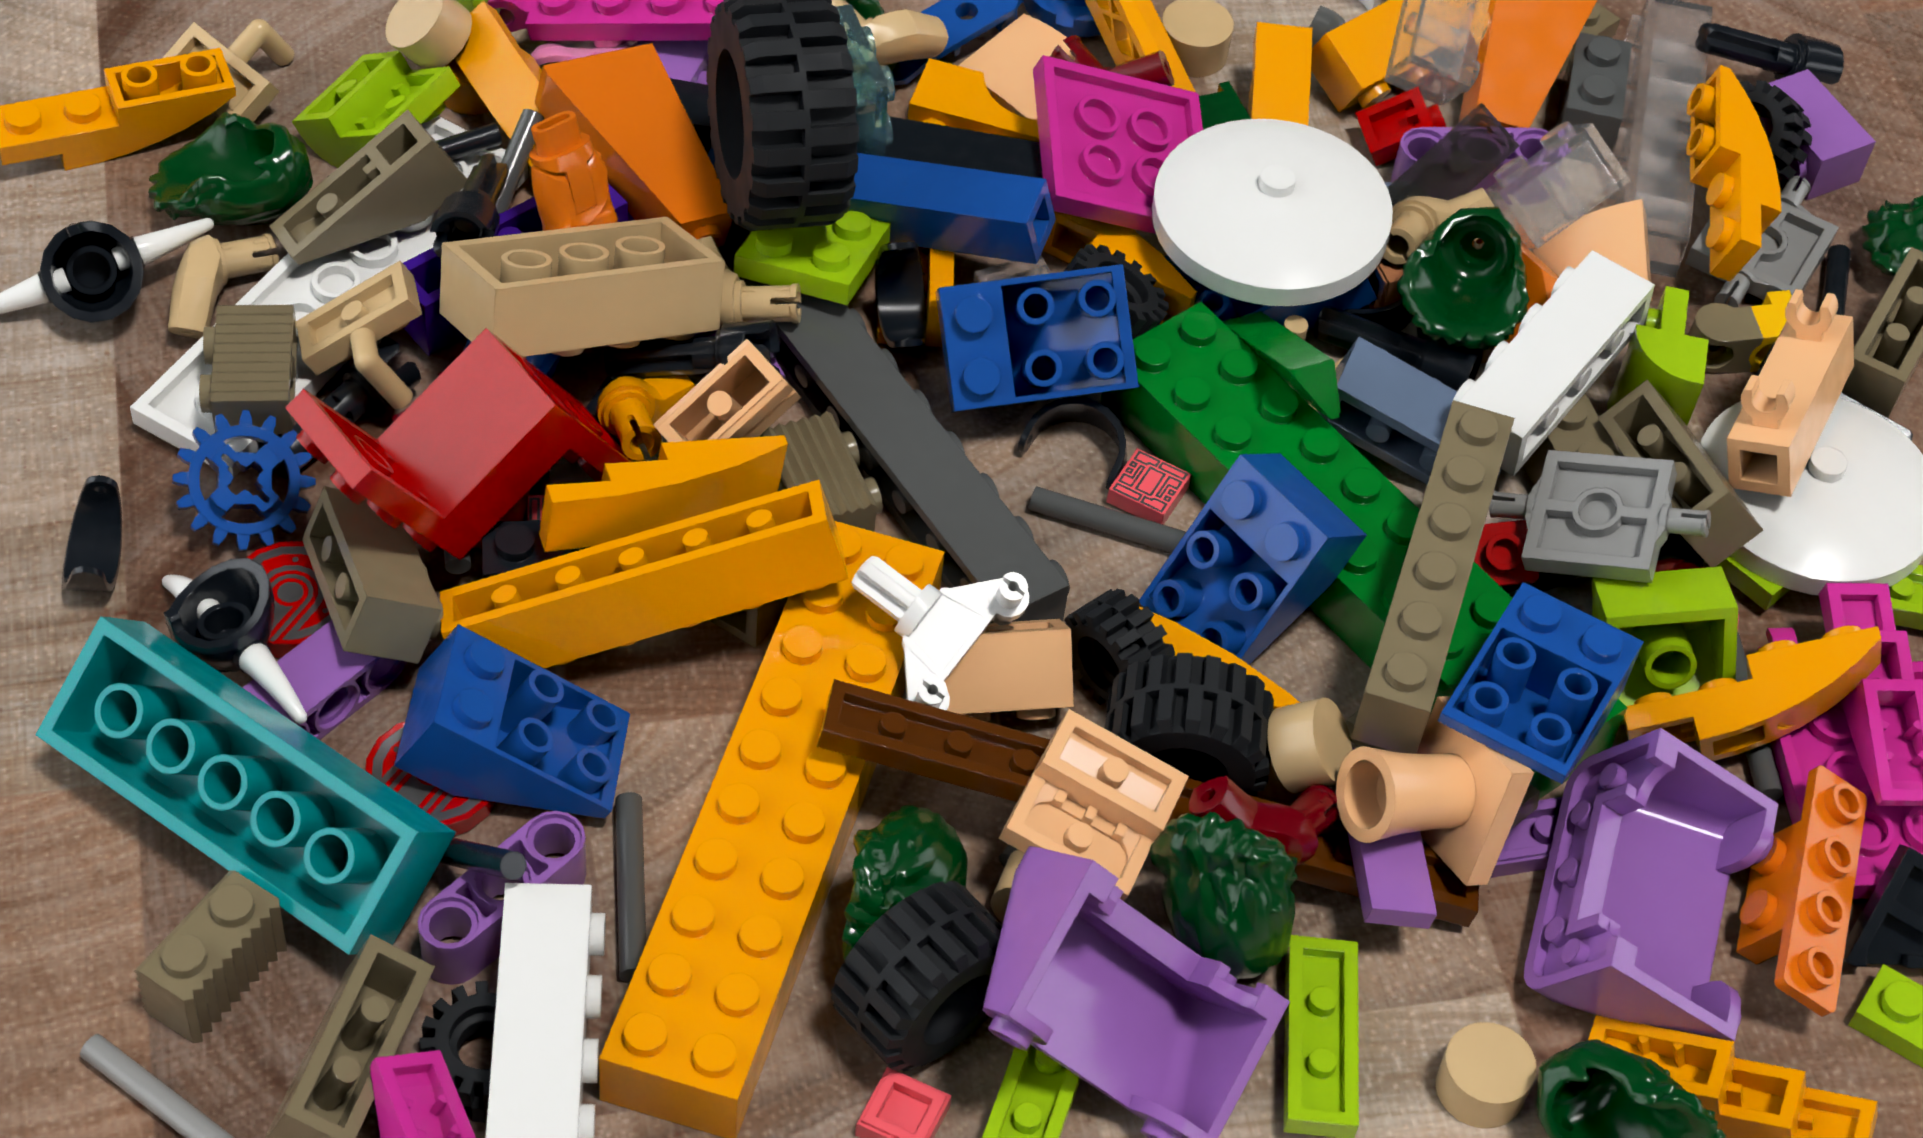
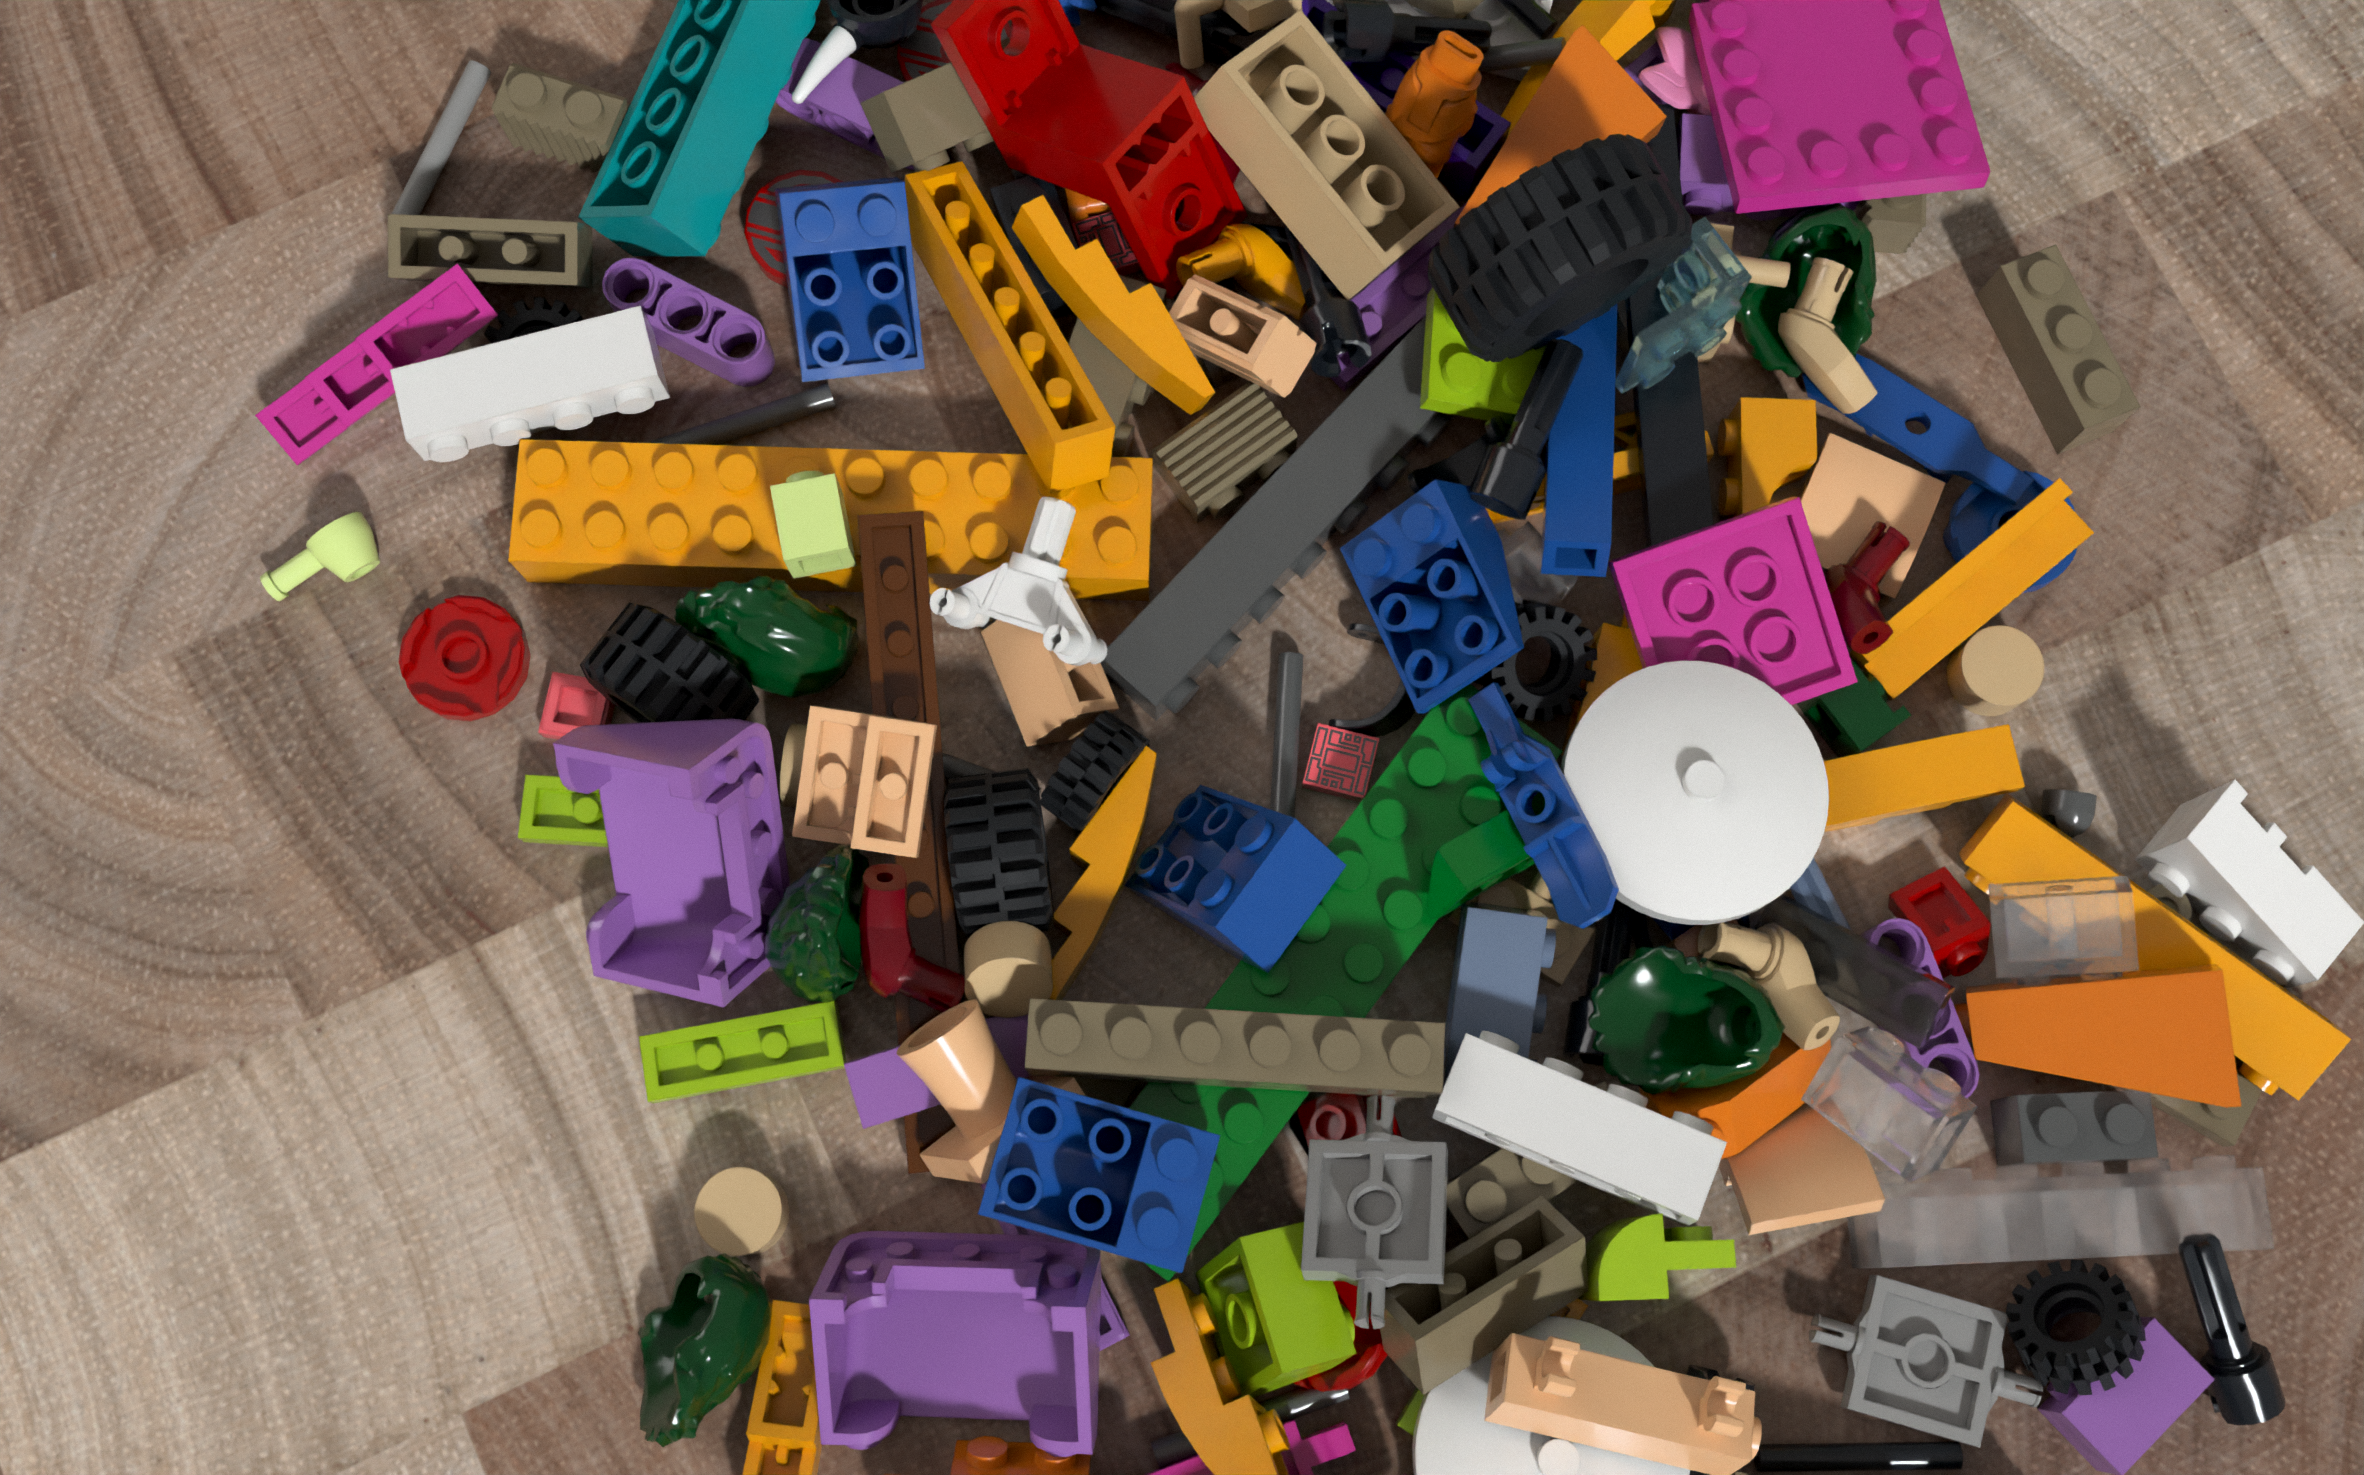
camera: 80 degrees right, 25 degrees up
(485, 859) = (688, 275): black bar -> none
(755, 303) = (1393, 301): tan arm -> none
(811, 780) = (812, 524): none -> yellowish green brick
(942, 240) = (1512, 468): none -> black piece
(1297, 302) = (1559, 836): none -> blue piece
(1737, 168) = (2003, 1300): light orange slope -> none
(1740, 334) = (1760, 1341): dark tan leg -> none

